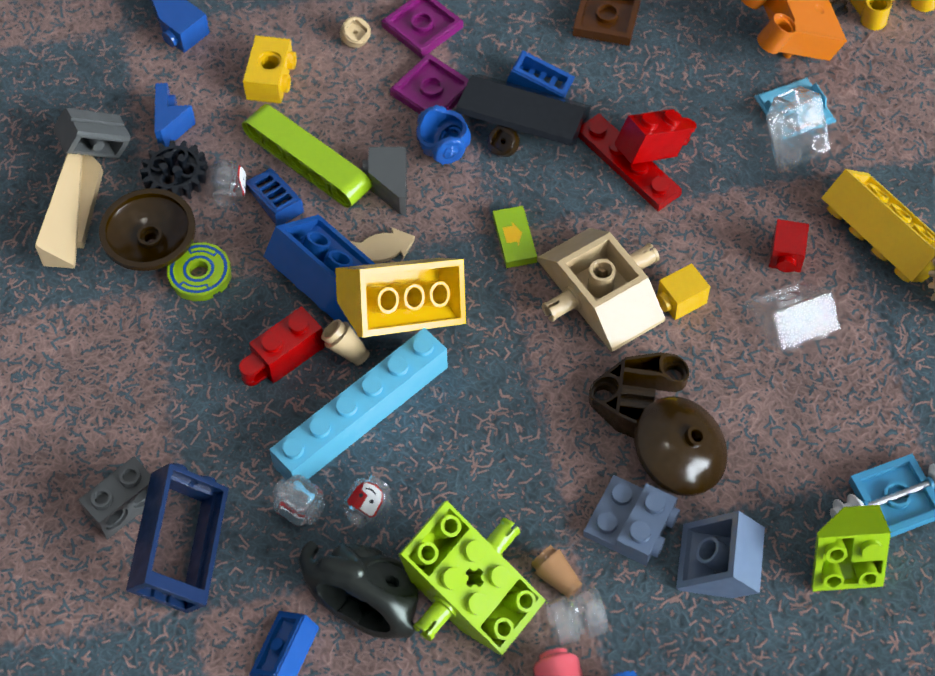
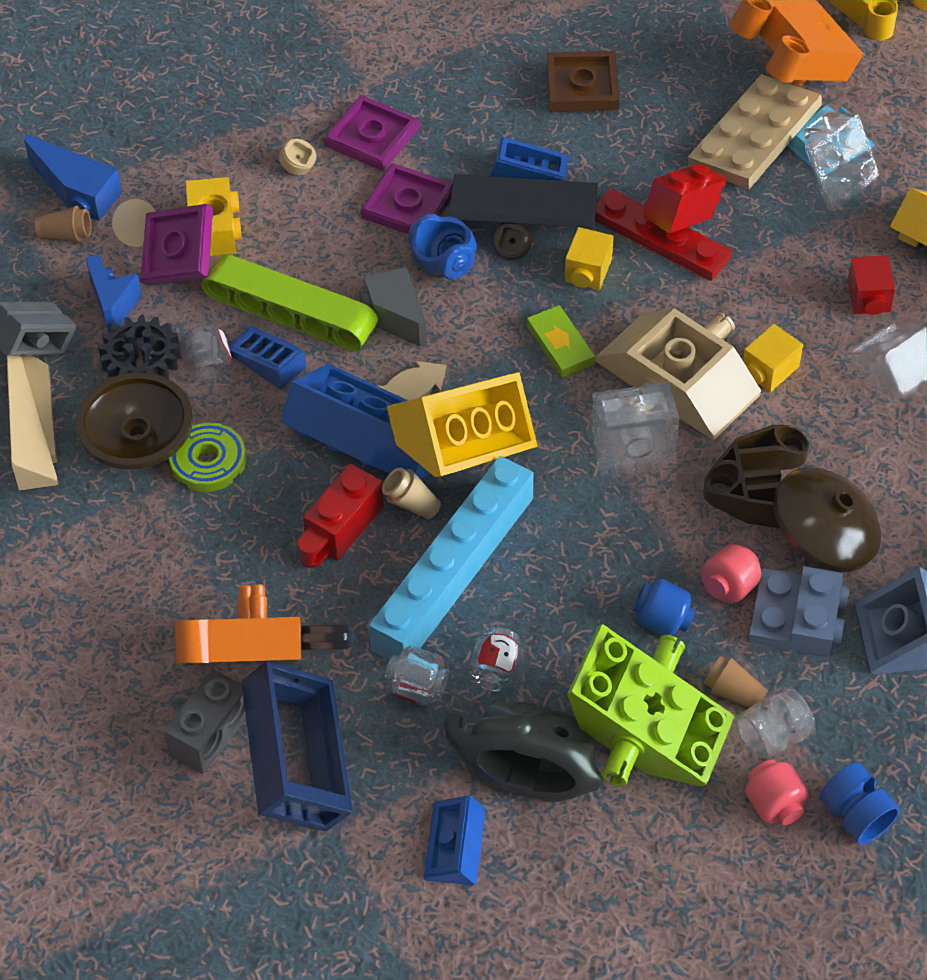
camera: 15 degrees left, 5 degrees down
(154, 51) = (66, 224): none -> medium nougat cone
(168, 437) = (254, 635): none -> orange piece
(211, 60) = (129, 221): none -> tan sticker
(230, 87) = (176, 244): none -> magenta tile
(519, 491) = (663, 608): none -> blue head
(543, 330) = (635, 430): none -> clear slope
(559, 171) = (588, 258): none -> yellow brick
(585, 474) = (731, 573): none -> coral head
(736, 89) = (756, 130): none -> tan plate

